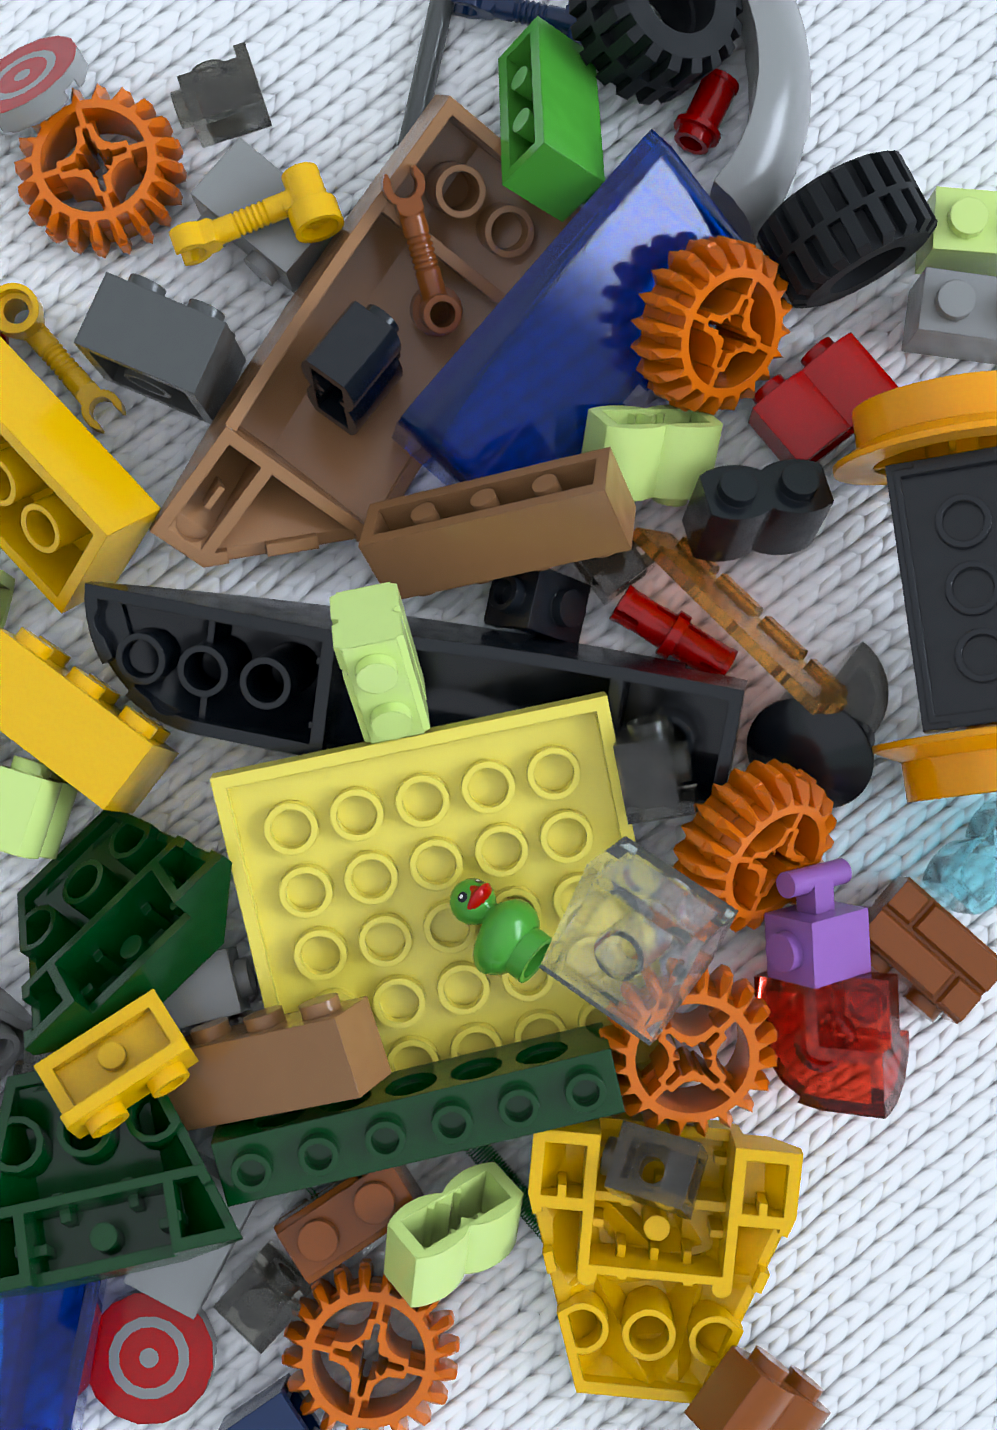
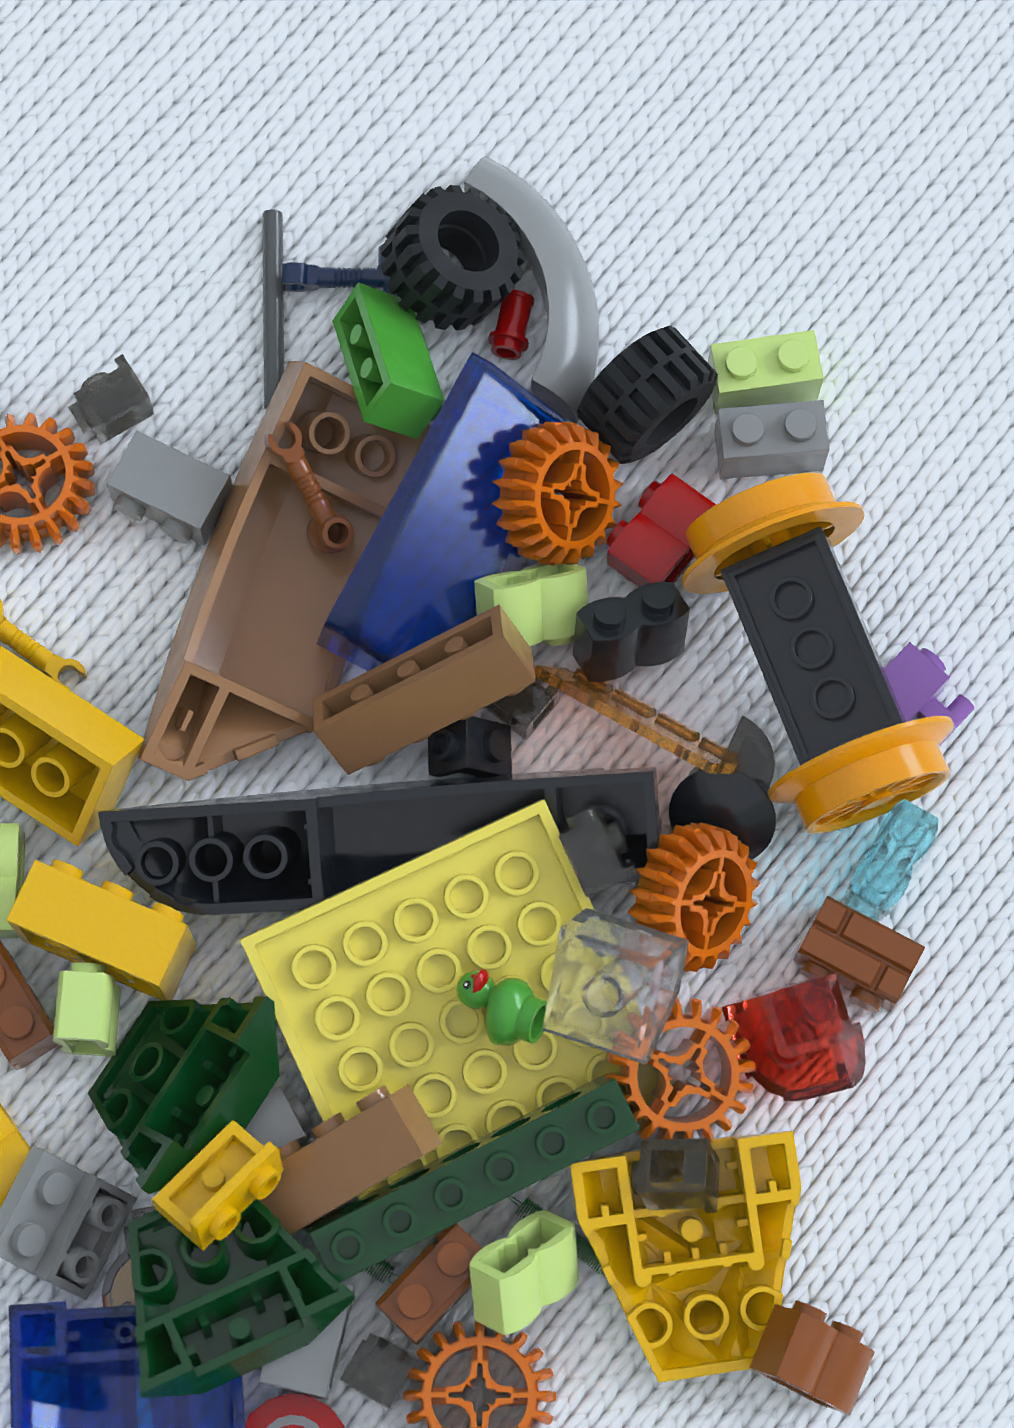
camera: 20 degrees left, 10 degrees down
(161, 346) = (113, 612): dark grey brick -> none
(304, 201) = (204, 469): yellow brick -> none
(354, 366) = (275, 591): black brick -> none
(379, 662) = (357, 813): yellowish green brick -> none
(672, 633) = (585, 747): red pin -> none
(817, 937) = (764, 959): medium lavender brick -> none

